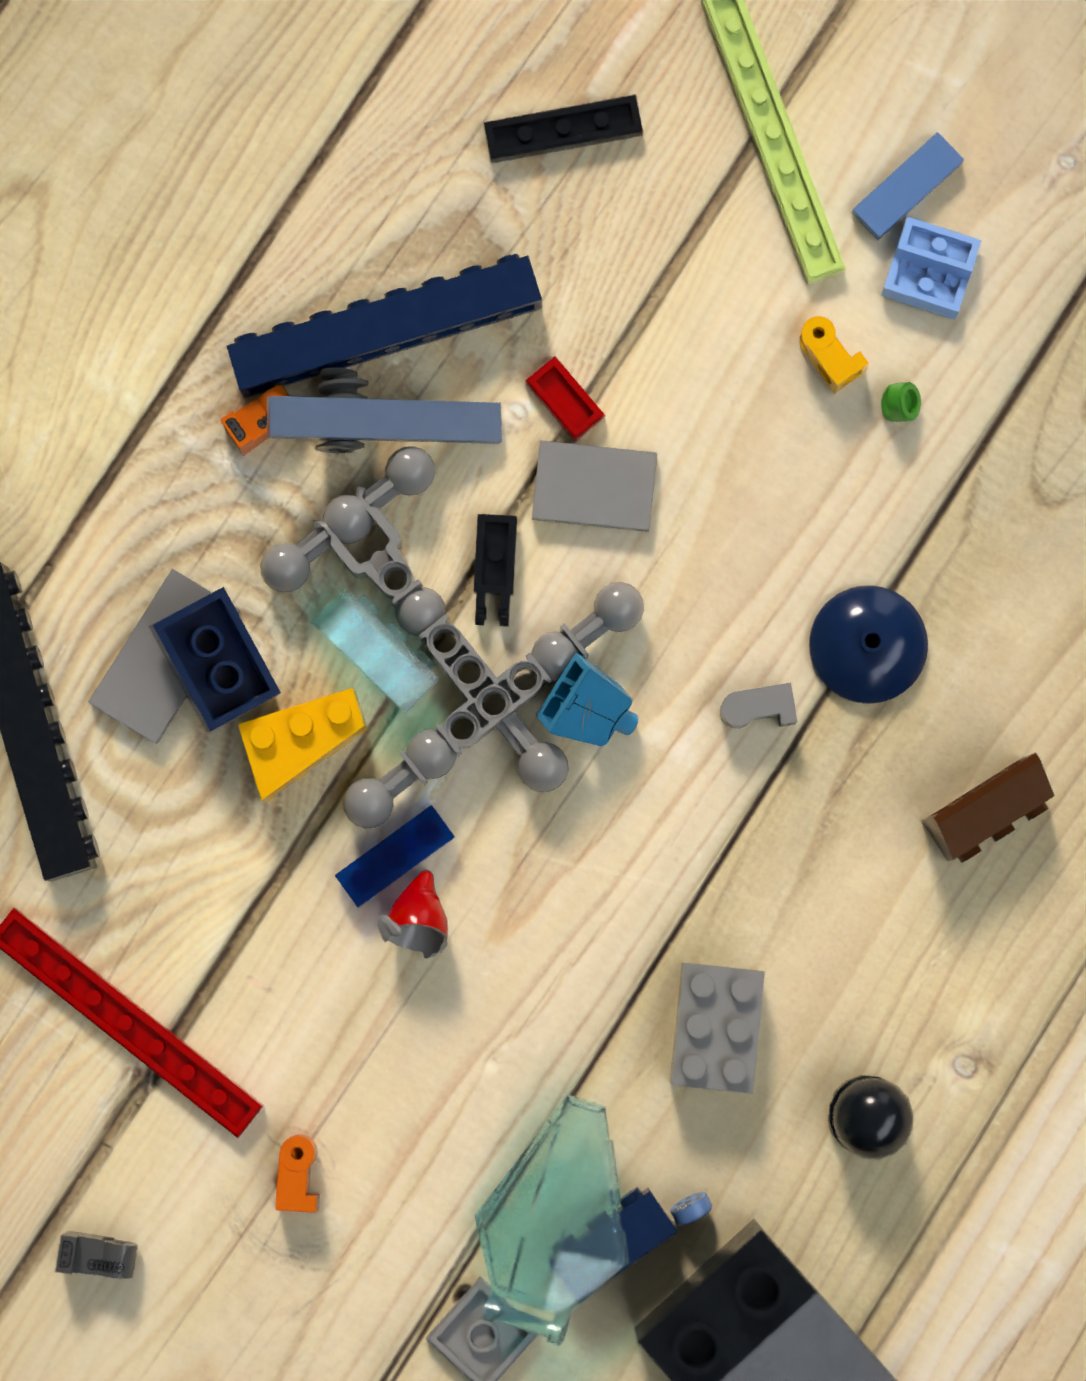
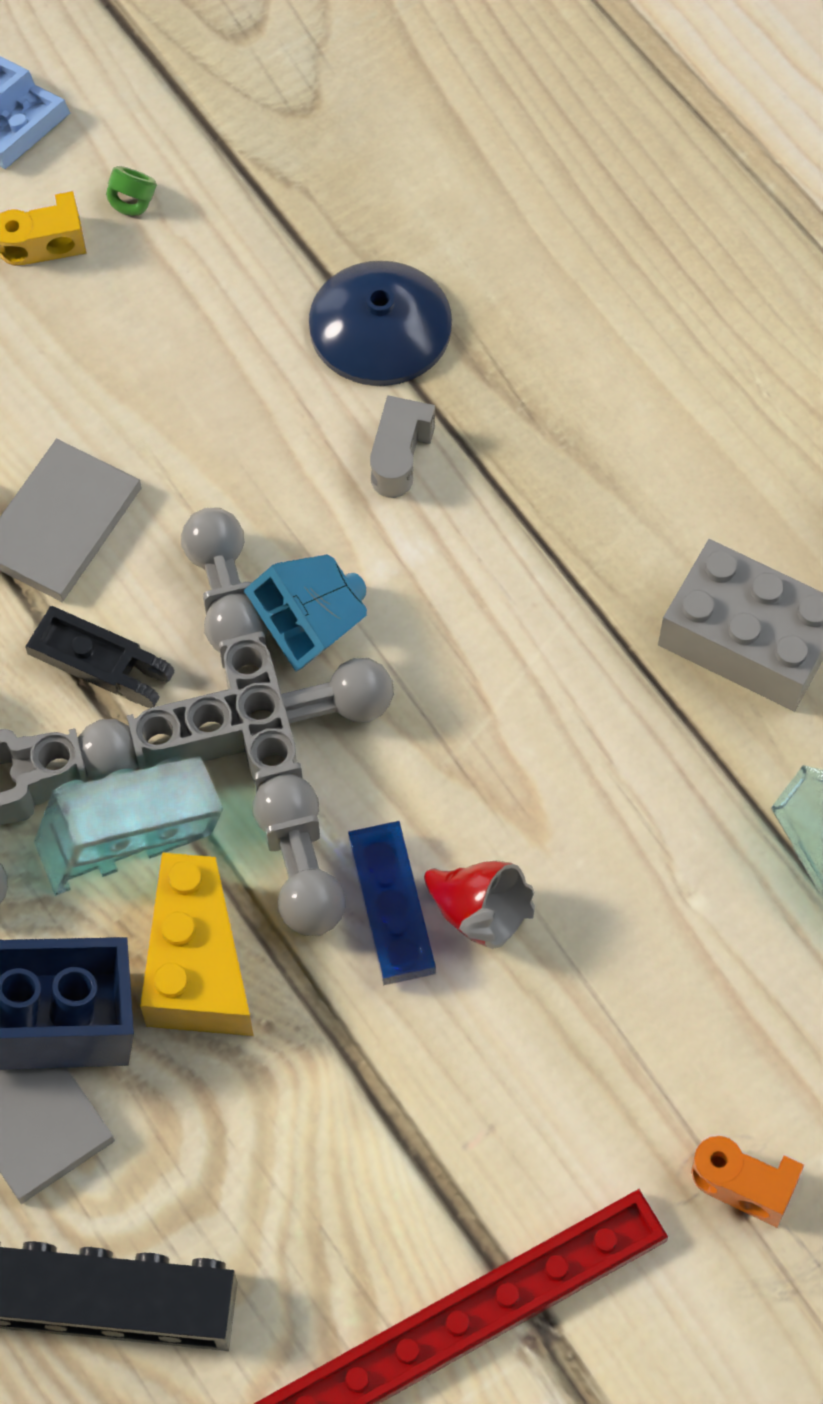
camera: 70 degrees left, 20 degrees down
(990, 809) = (617, 263): reddish brown slope -> none

